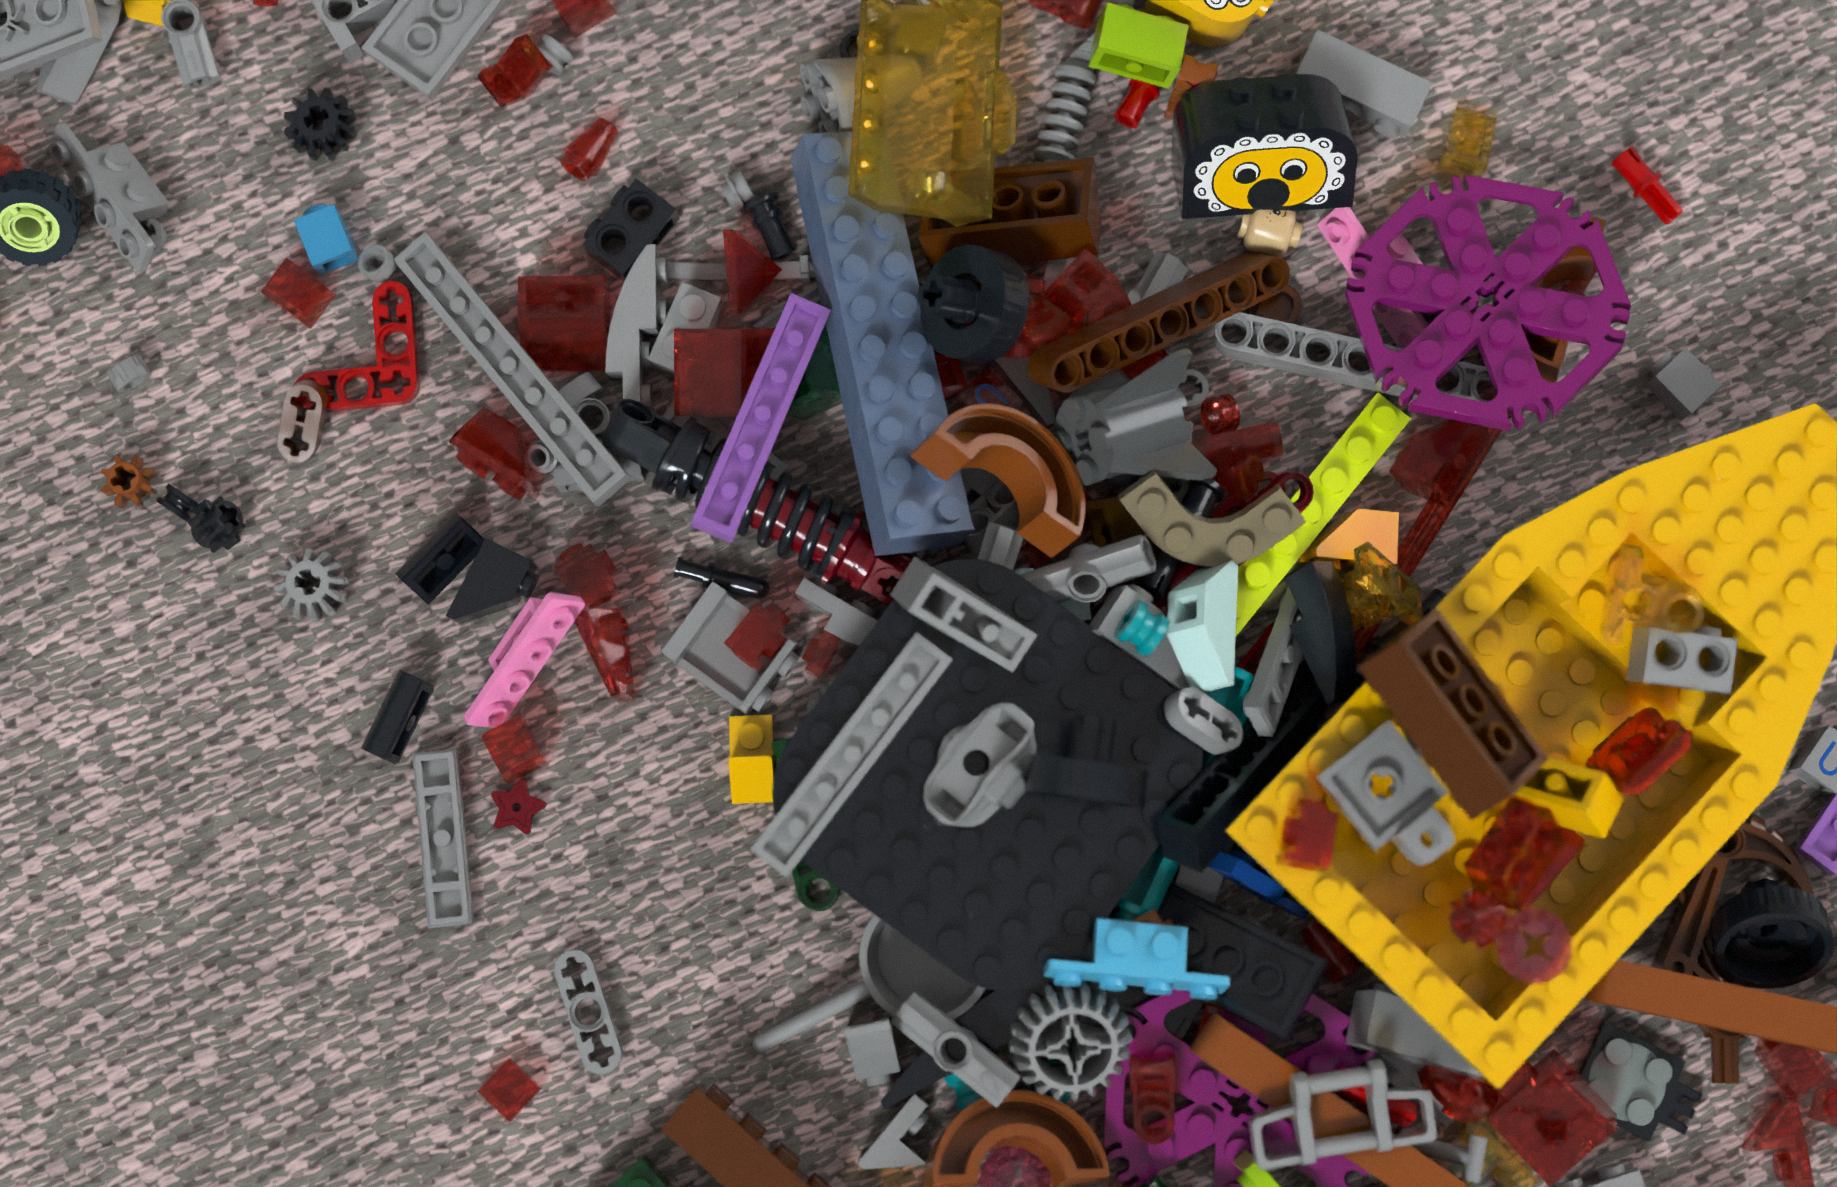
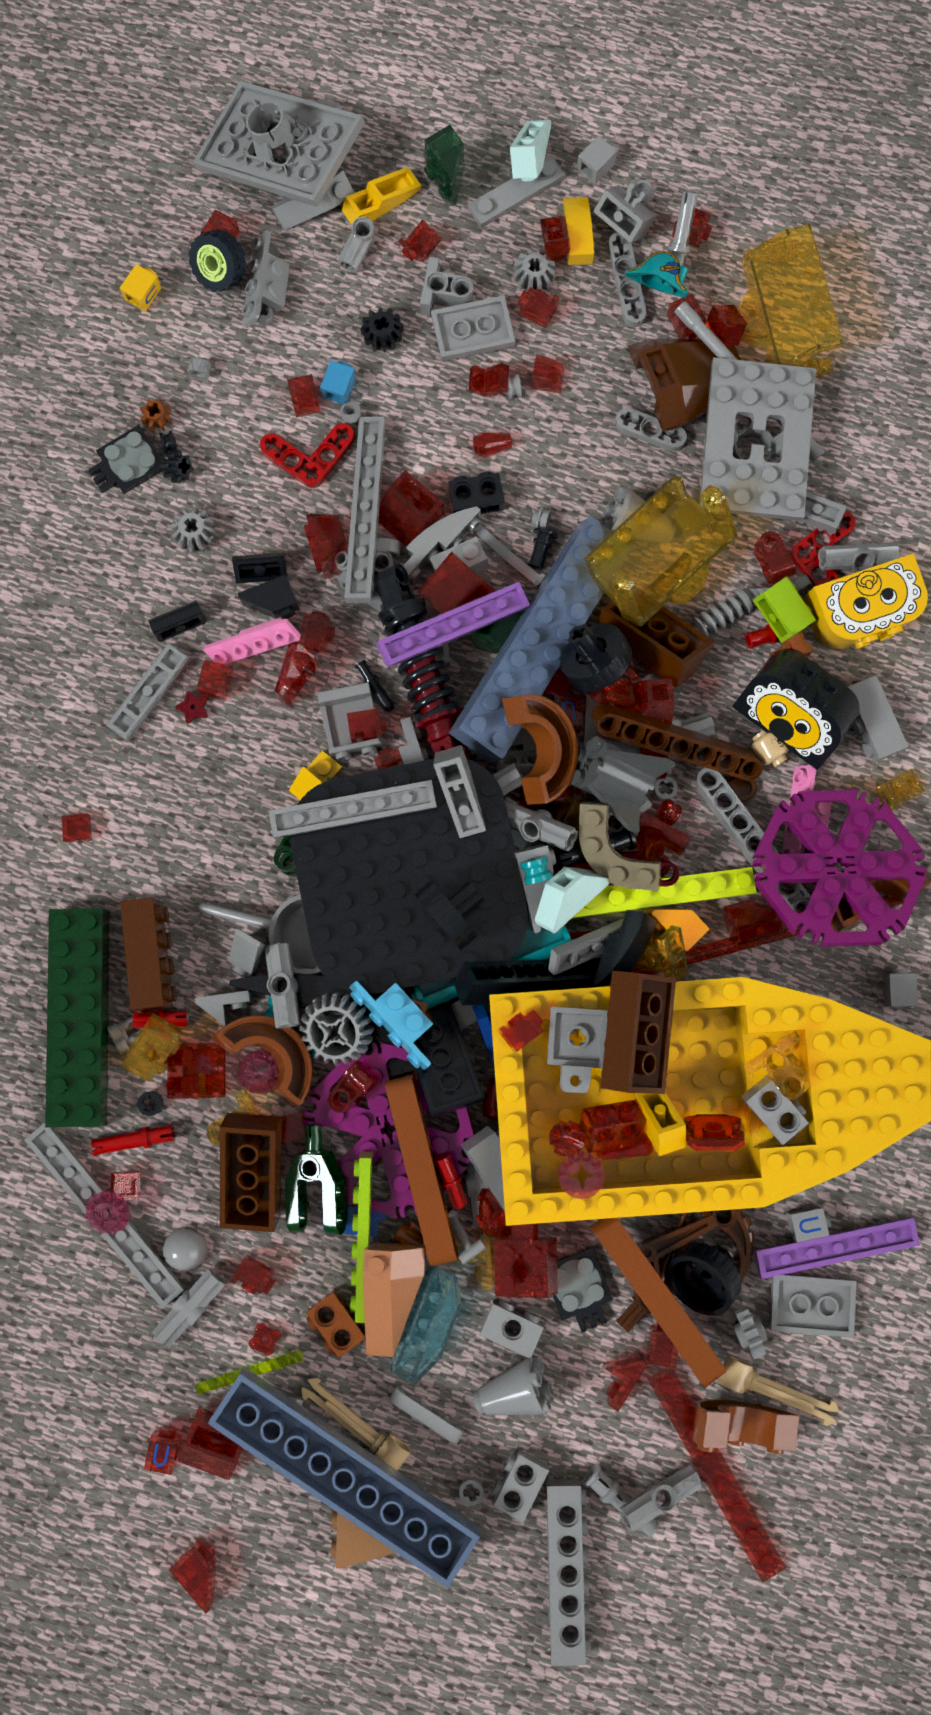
camera: 45 degrees right, 0 degrees up
(144, 573) = (126, 461): none -> piece
(311, 422) = (256, 458): beam -> none
(589, 1046) = (142, 804): light grey beam -> none
(746, 270) = (510, 558): clear red slope -> none
(970, 800) = (385, 876): light grey piece -> none
(1204, 717) = (525, 939): light grey beam -> none
(1379, 1137) = (432, 1198): light grey bar -> none

